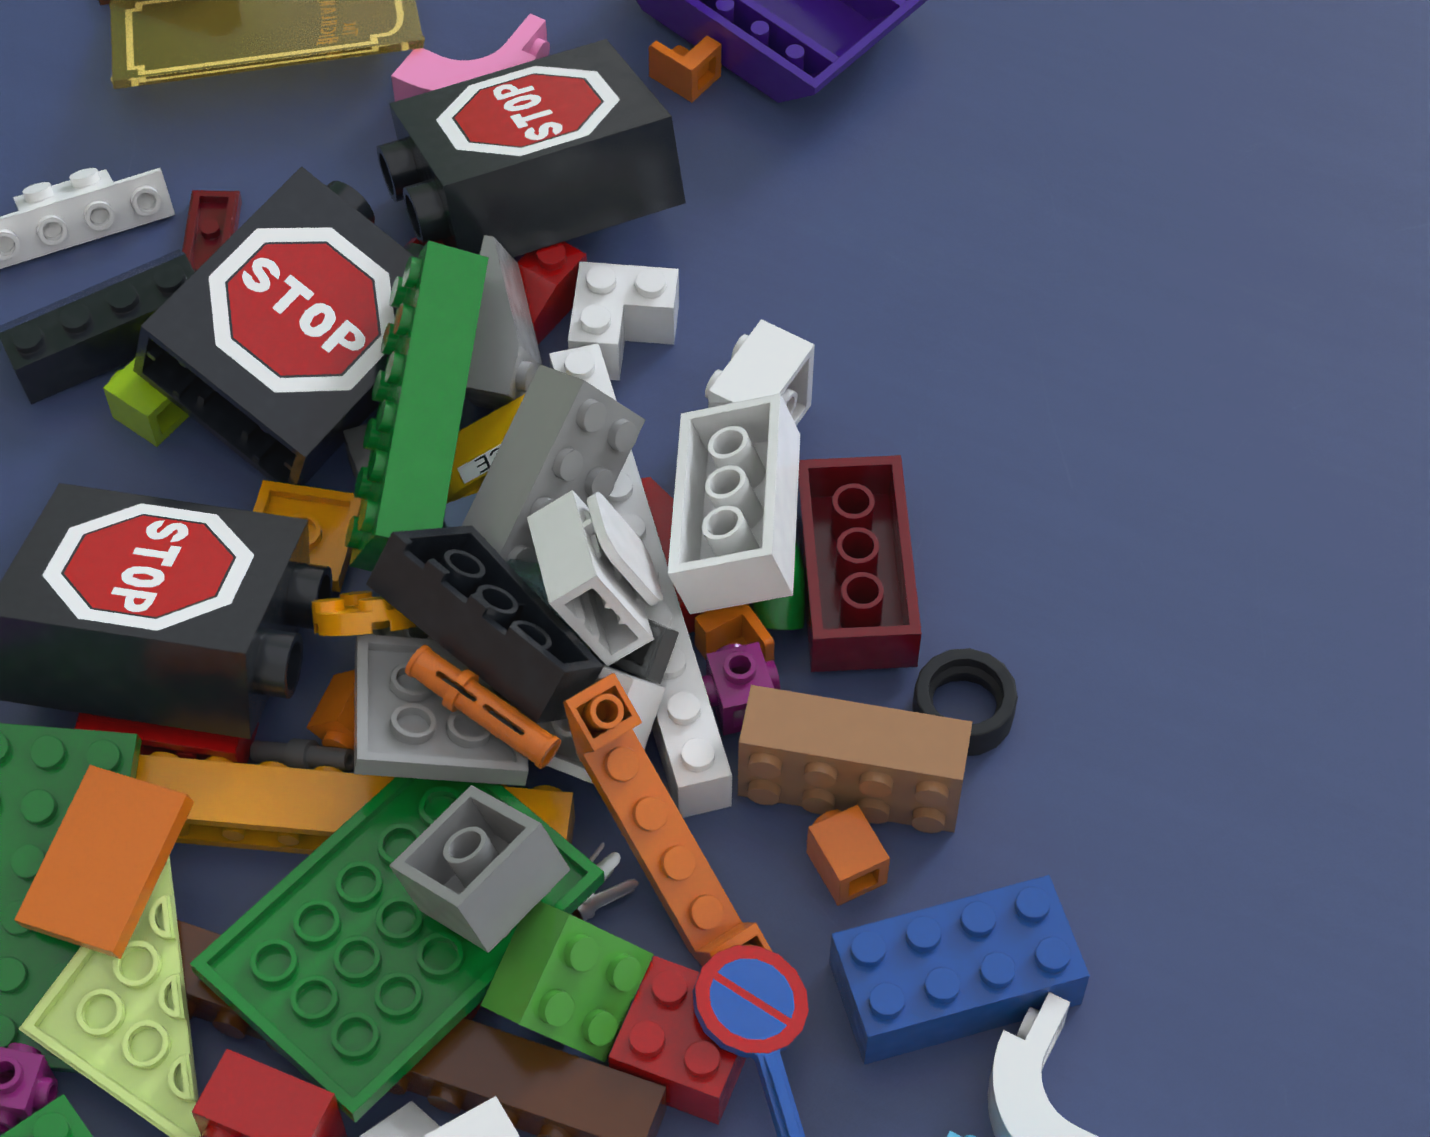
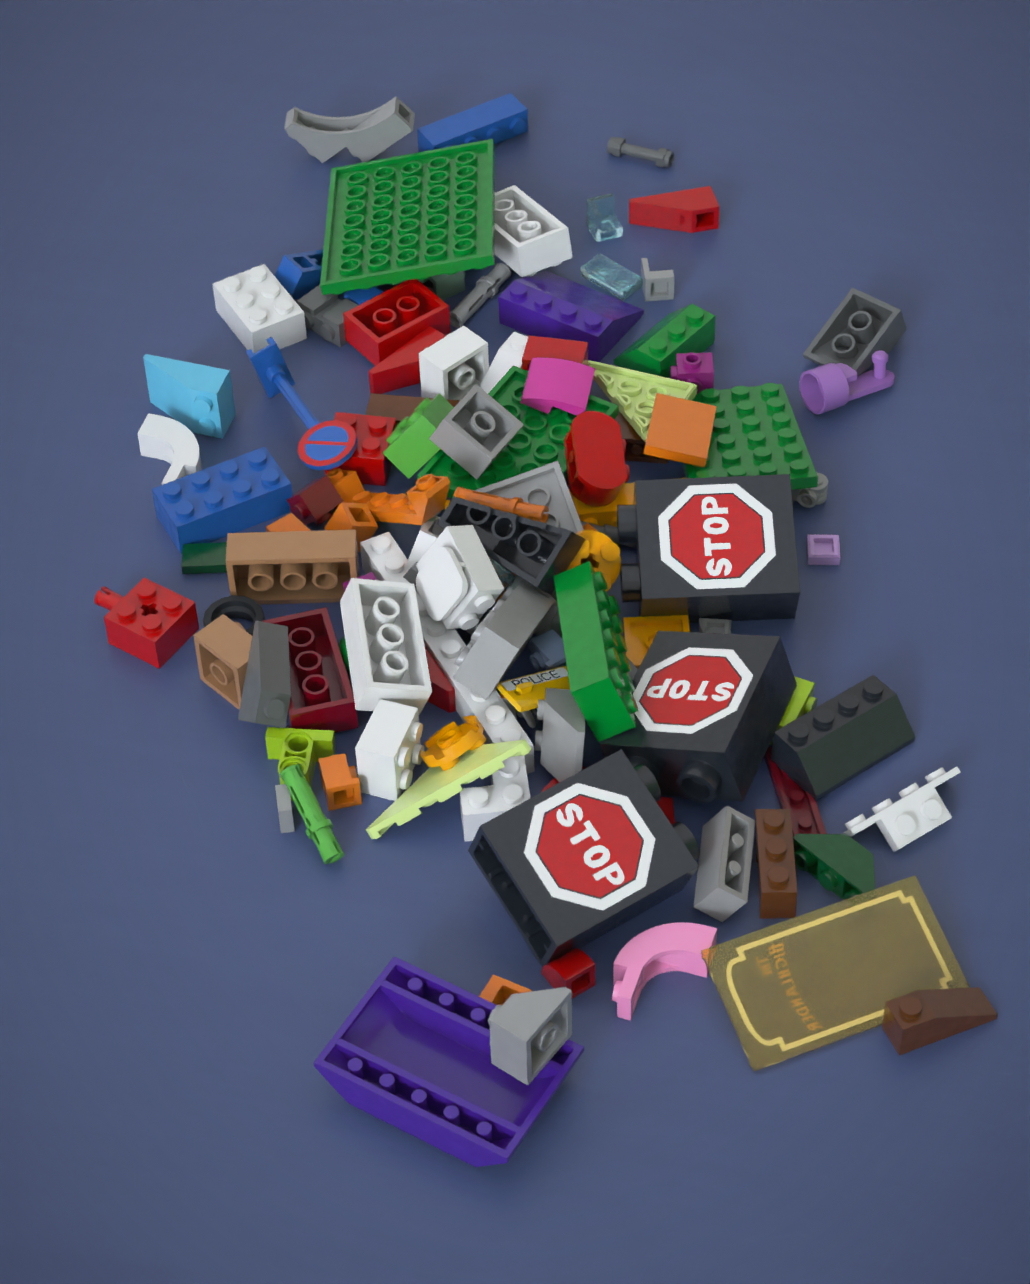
camera: 170 degrees right, 10 degrees down
(194, 150) = (836, 863): none -> dark green slope
(279, 822) = (595, 458): none -> red brick
(282, 143) = (775, 863): none -> reddish brown arch
(288, 1008) = (557, 384): none -> dark pink slope
(350, 140) = (724, 864): none -> light grey brick
(640, 373) = (451, 742): none -> light orange plate
(668, 334) = (441, 785): none -> yellowish green tile
(738, 837) = (353, 517): none -> orange brick
(796, 920) = (315, 501): none -> dark red brick
(840, 393) = (339, 782): none -> orange brick
(883, 323) = (308, 806): none -> bright green pin
(900, 433) = (299, 747): none -> lime tile
(925, 368) = (284, 809): none -> light grey tile
(928, 493) = (267, 677): none -> dark grey slope
(976, 587) = (223, 657): none -> medium nougat brick
(980, 863) = (204, 558): none -> dark green tile
(1108, 727) = (148, 621): none -> red brick

